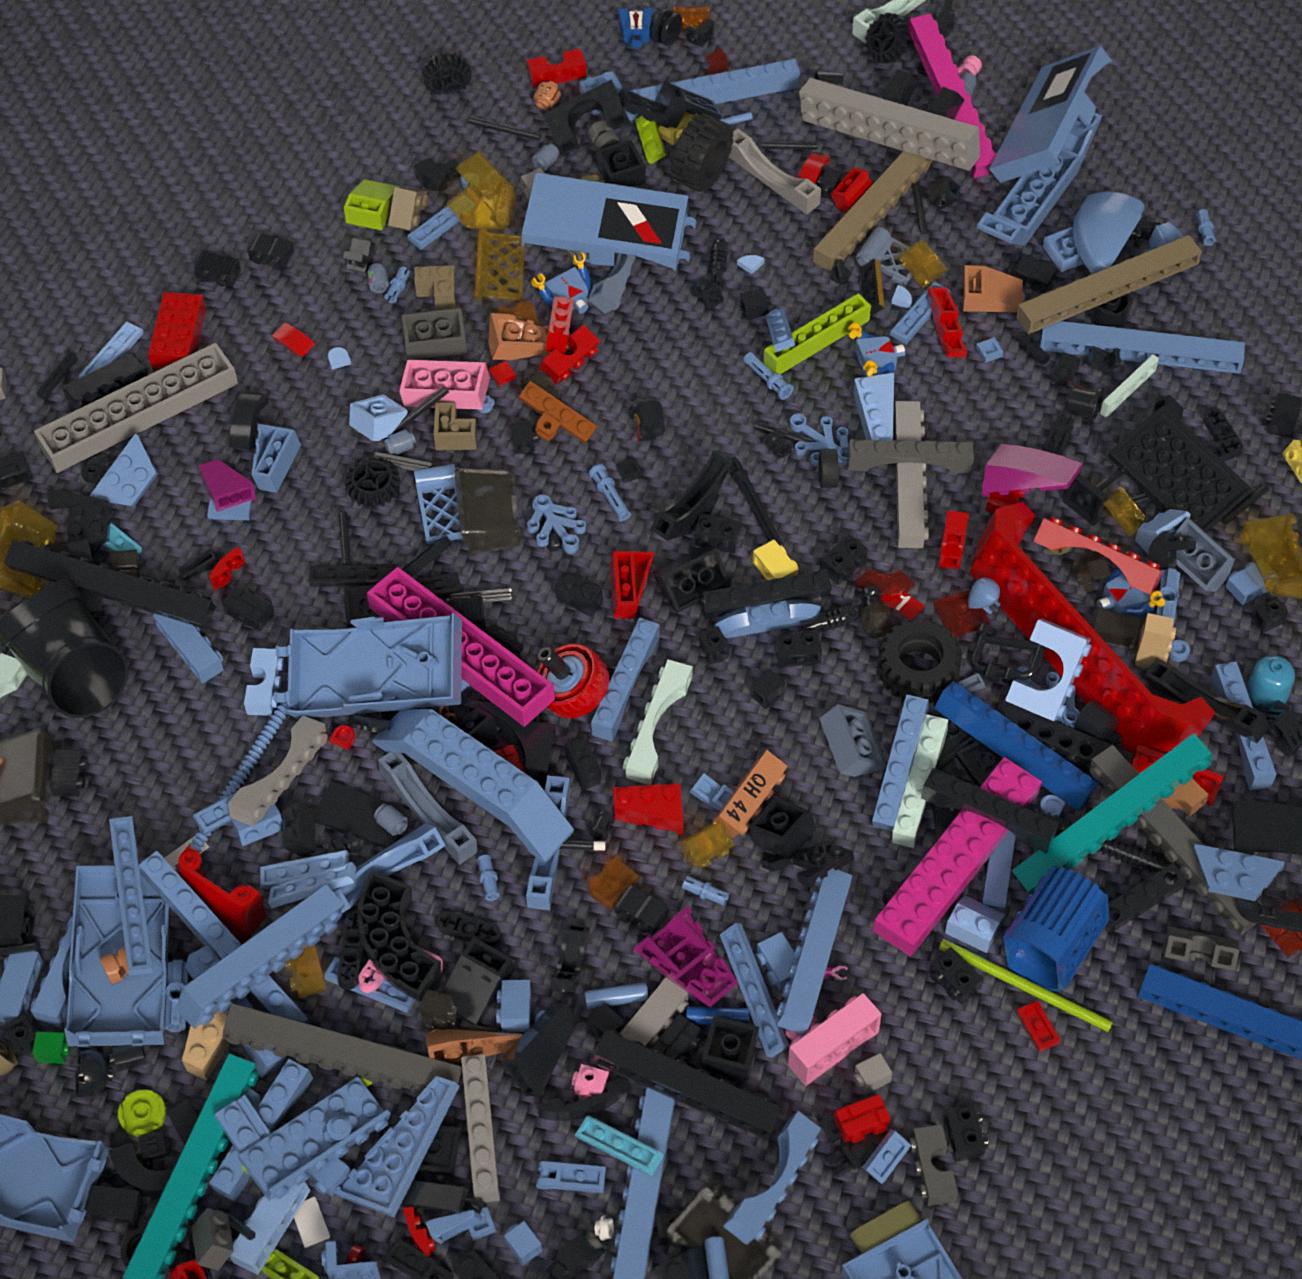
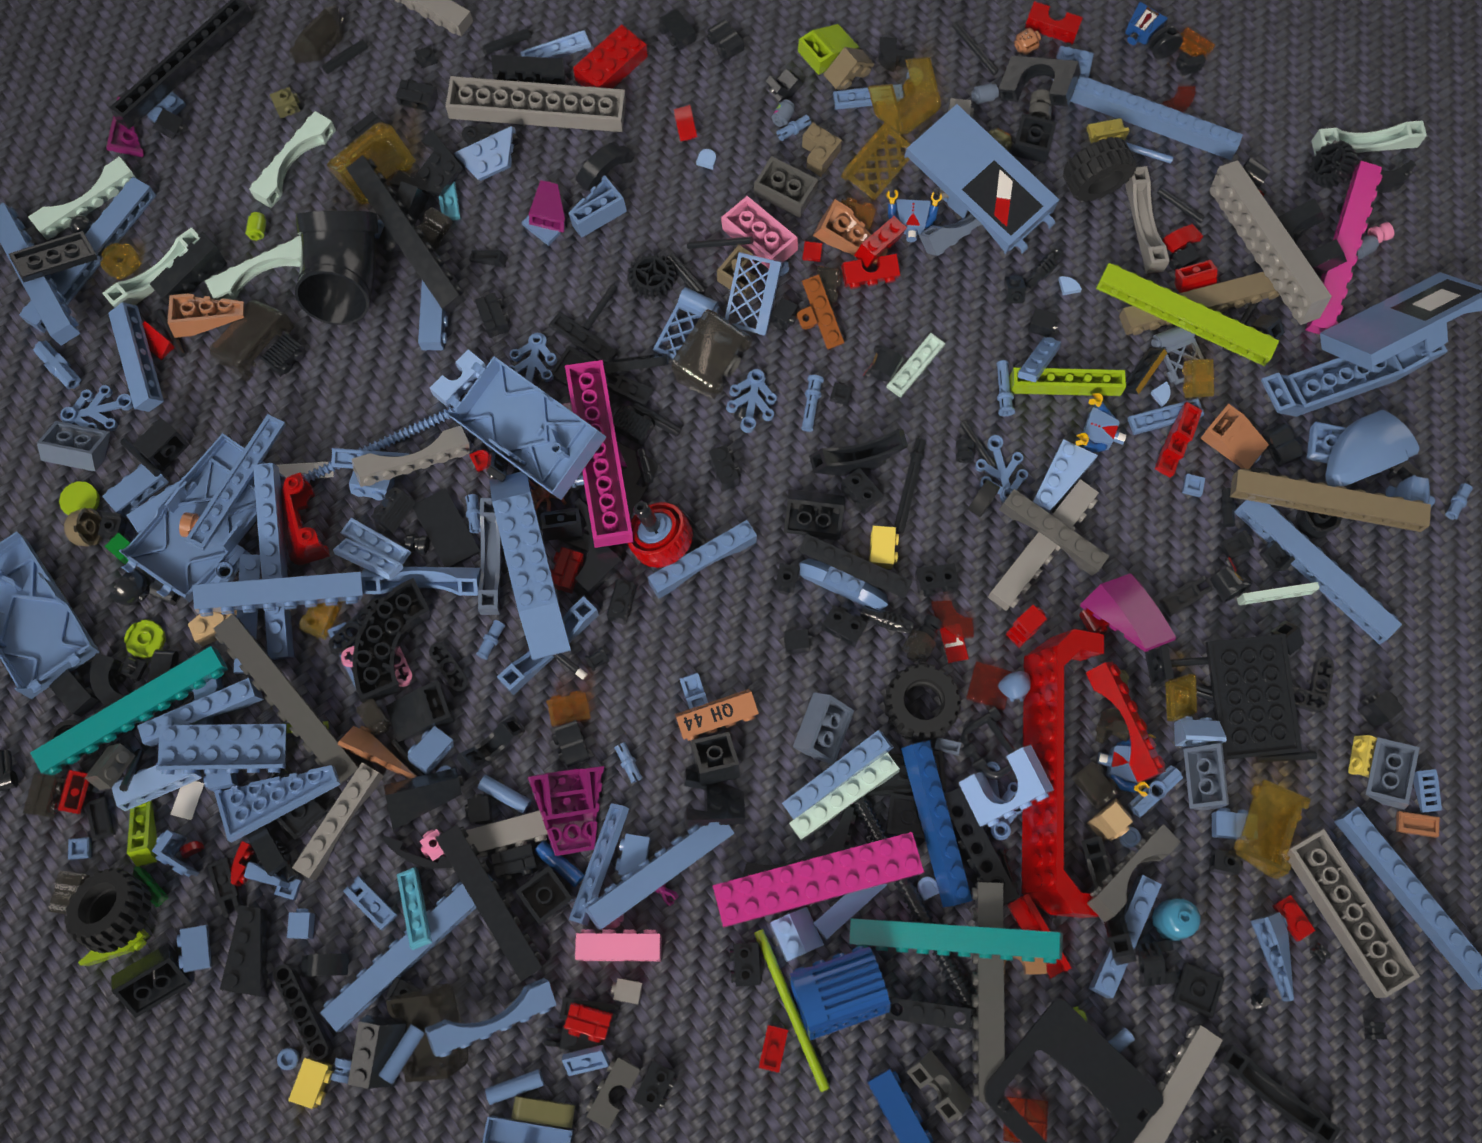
camera: 35 degrees right, 15 degrees up
(222, 571) = (496, 274): red slope -> none
(242, 1124) = (180, 704): medium blue plate -> none
(321, 622) = (533, 361): none -> medium blue plant
(338, 1128) = (238, 754): medium blue plate -> none
(376, 417) = (692, 226): light blue slope -> none
(377, 784) = (473, 513): none -> medium blue pin
(391, 819) = (457, 548): sand blue brick -> none
(399, 442) = (695, 257): sand blue brick -> none
(498, 422) = (768, 296): none -> medium blue fence
(604, 1228) = (361, 957): white plate -> none
(628, 579) = (765, 484): red wedge -> none
(650, 139) = (1078, 128): lime plate -> none
(650, 805) = (641, 670): red wedge -> none
(668, 105) = (1109, 112): black bracket -> none
(672, 686) = (733, 587): light aqua arch -> none
(674, 406) = (915, 365): none -> light aqua tile
(707, 844) = (654, 730): clear yellow brick -> none
(840, 273) = (1130, 341): black plate -> none
(842, 1229) = (514, 1087): none -> medium blue piece
(870, 219) = (1187, 314): none -> lime brick
(1027, 825) = (865, 866): black arch -> none
(1098, 722) = (1014, 852): black hat -> none
(1164, 549) = (1182, 753): black brick -> none
(1206, 688) = (1112, 895): none -> dark grey arch
(1236, 872) = (1006, 1057): medium blue wing -> none

